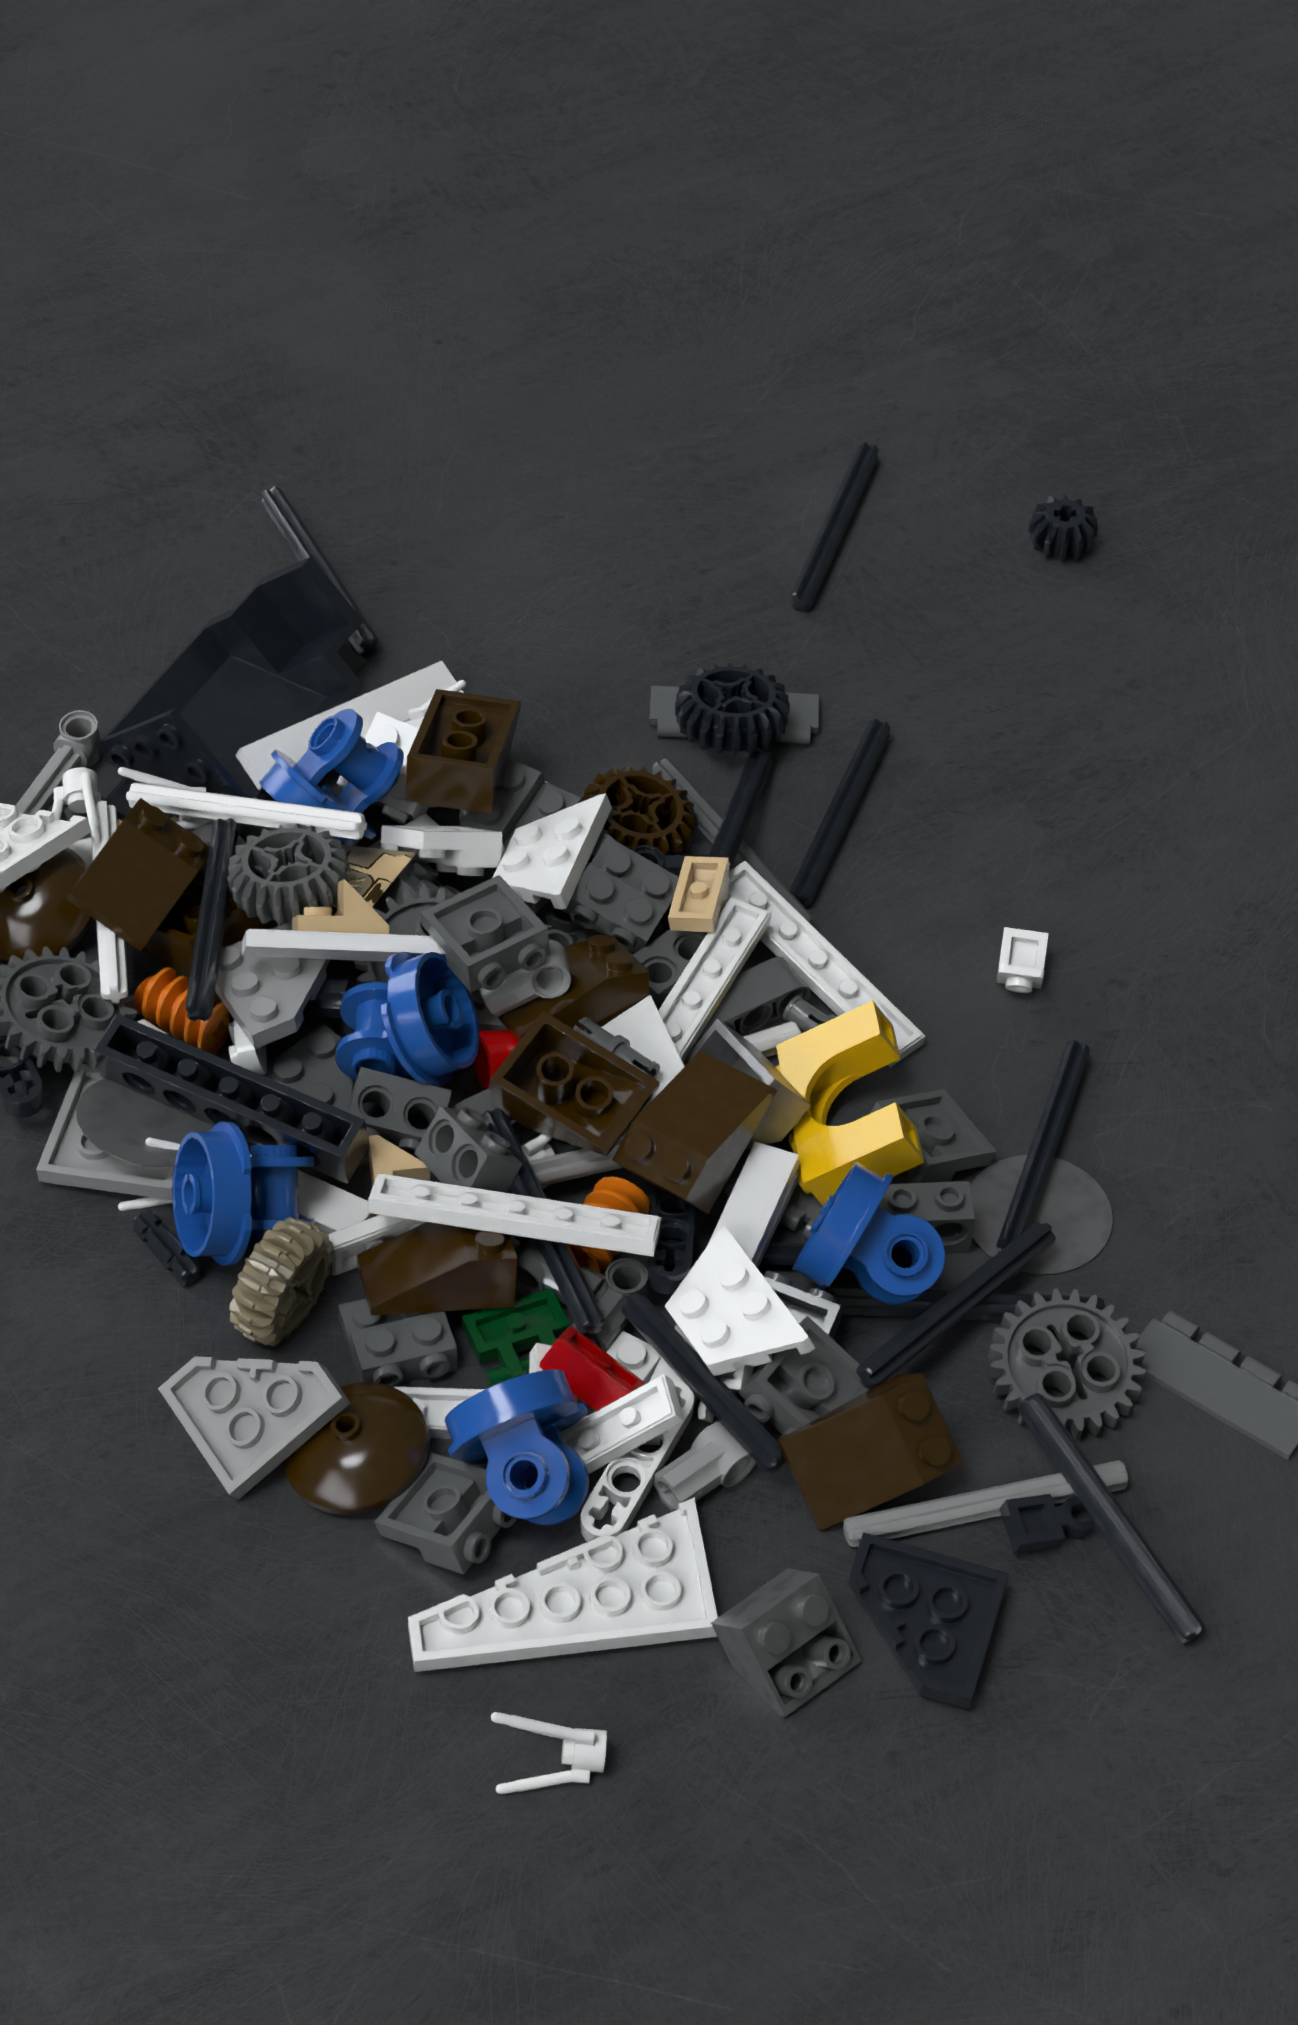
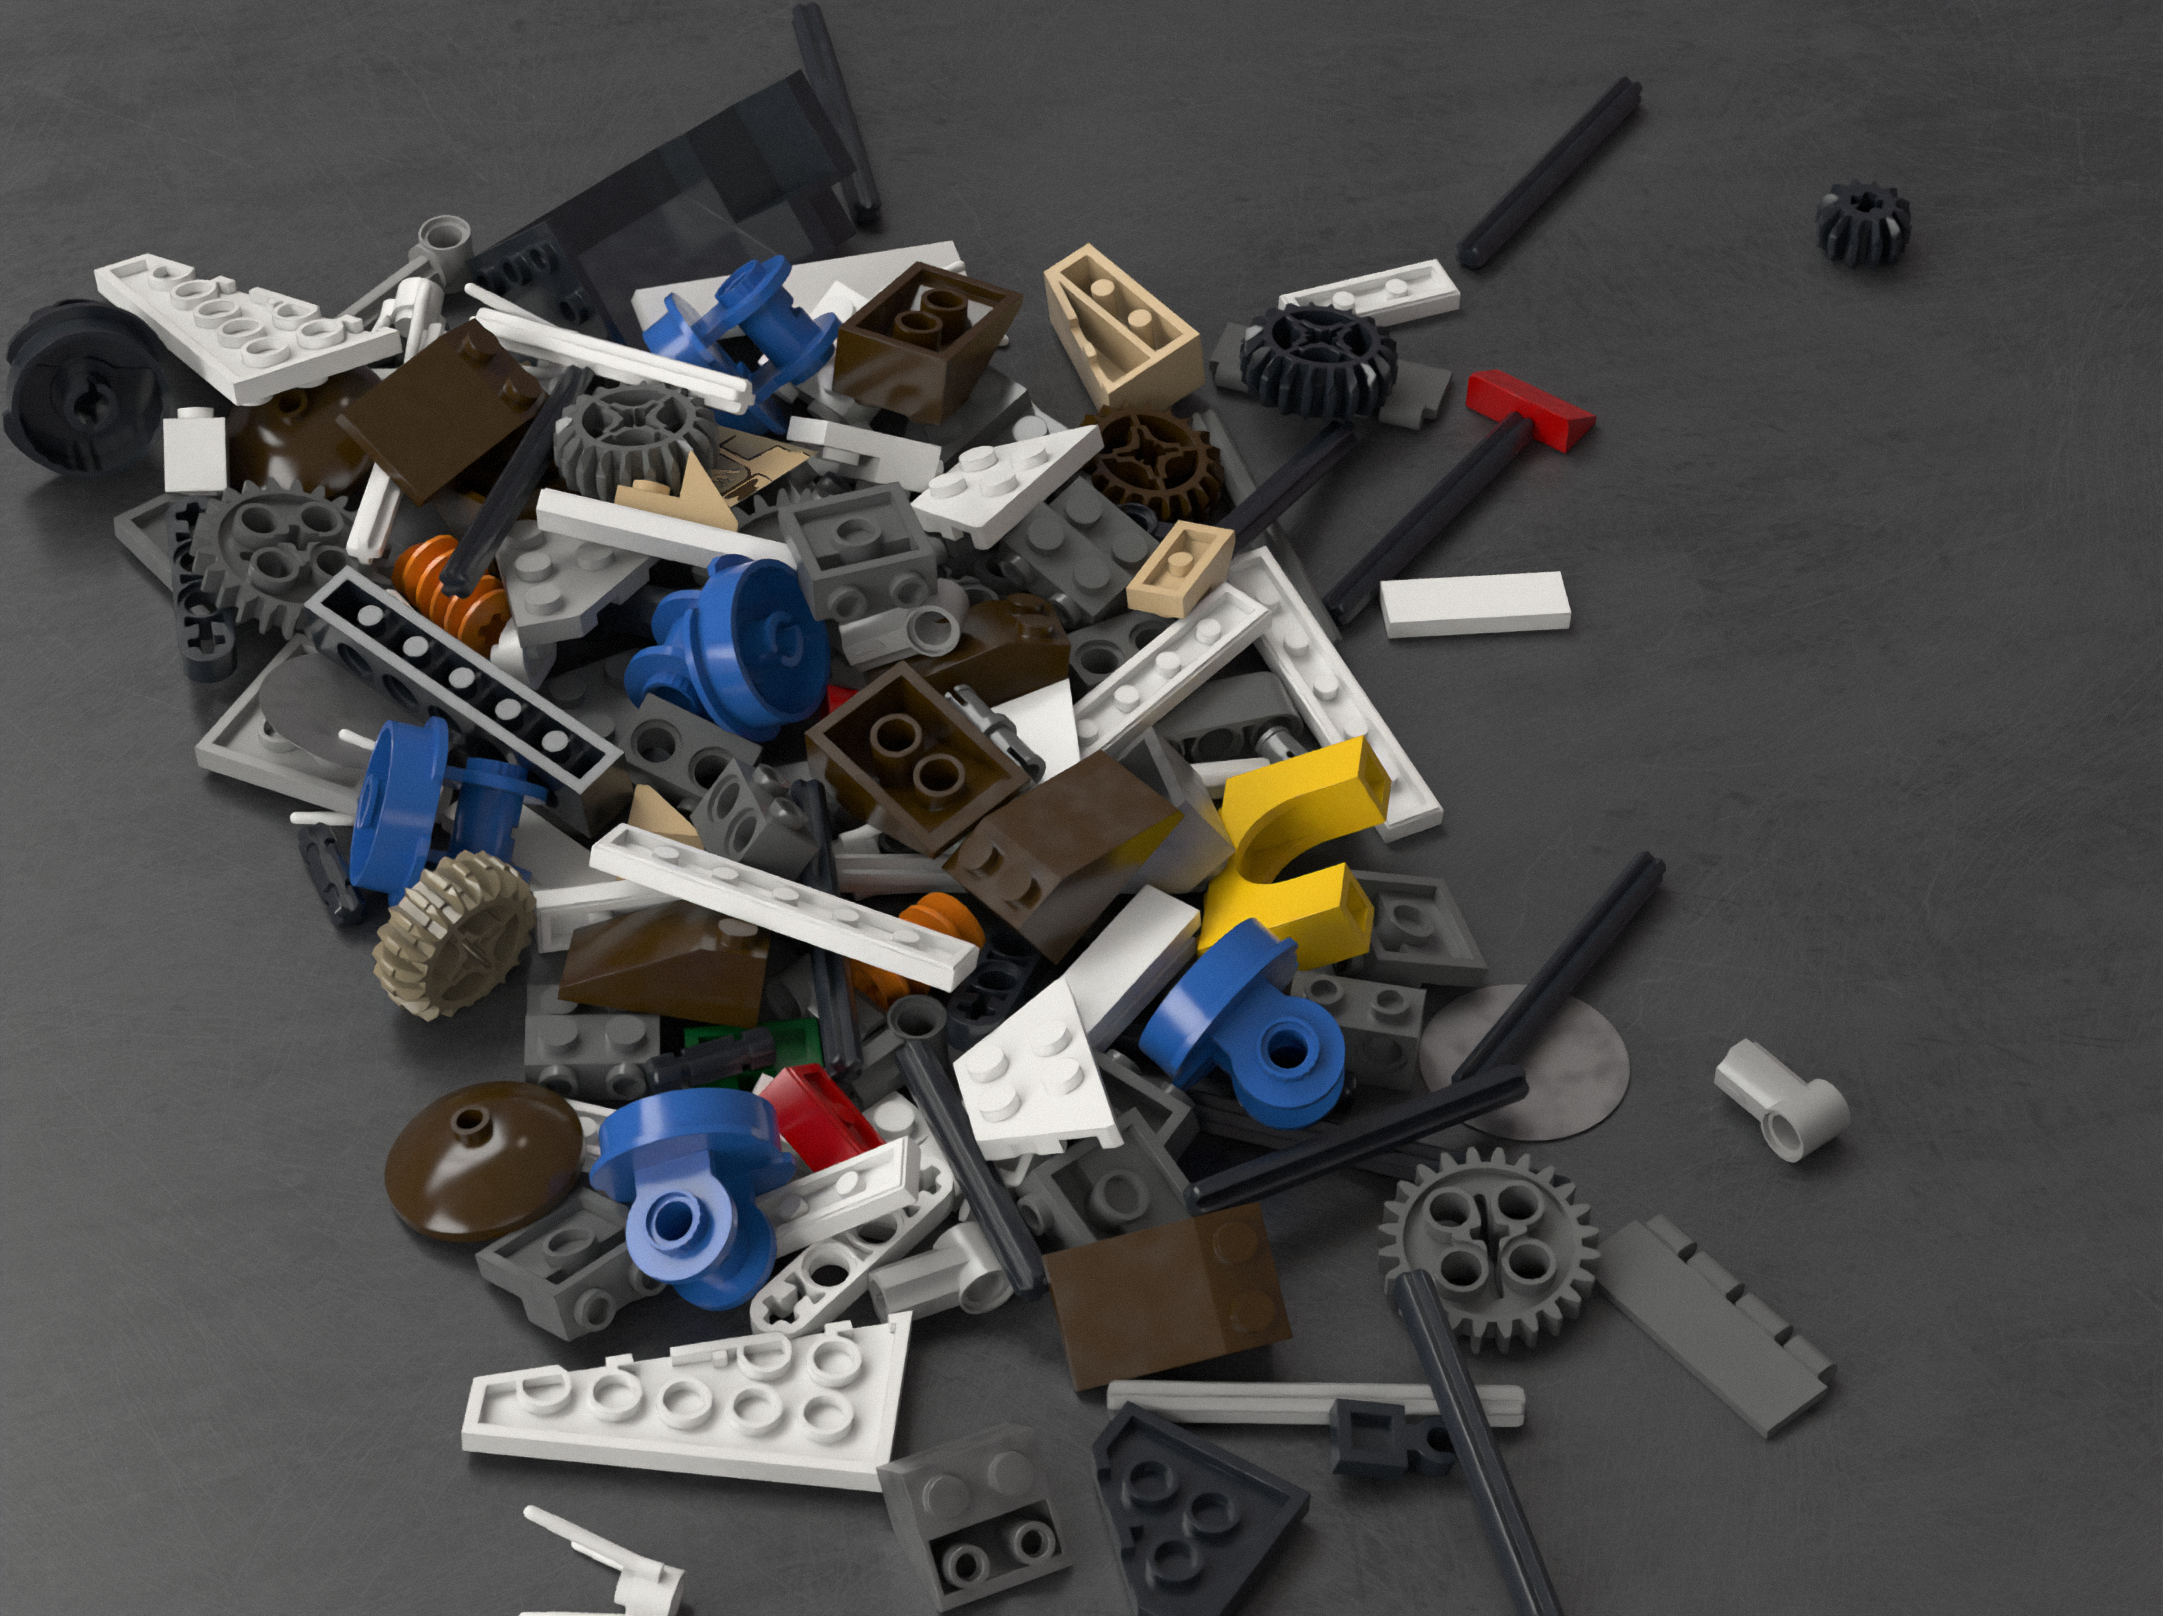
camera: 15 degrees right, 5 degrees down
(251, 1412) = (358, 1087): light grey plate -> none
(493, 1339) = (711, 1060): none -> black axle
(586, 715) = (1121, 334): none -> tan wedge
(749, 646) = (1387, 295): none -> white tile
(861, 707) = (1554, 419): none -> red slope
(893, 872) = (1474, 604): none -> white tile
(1022, 959) = (1611, 740): white bracket -> none
(1233, 1215) = (1792, 1113): none -> light grey piece

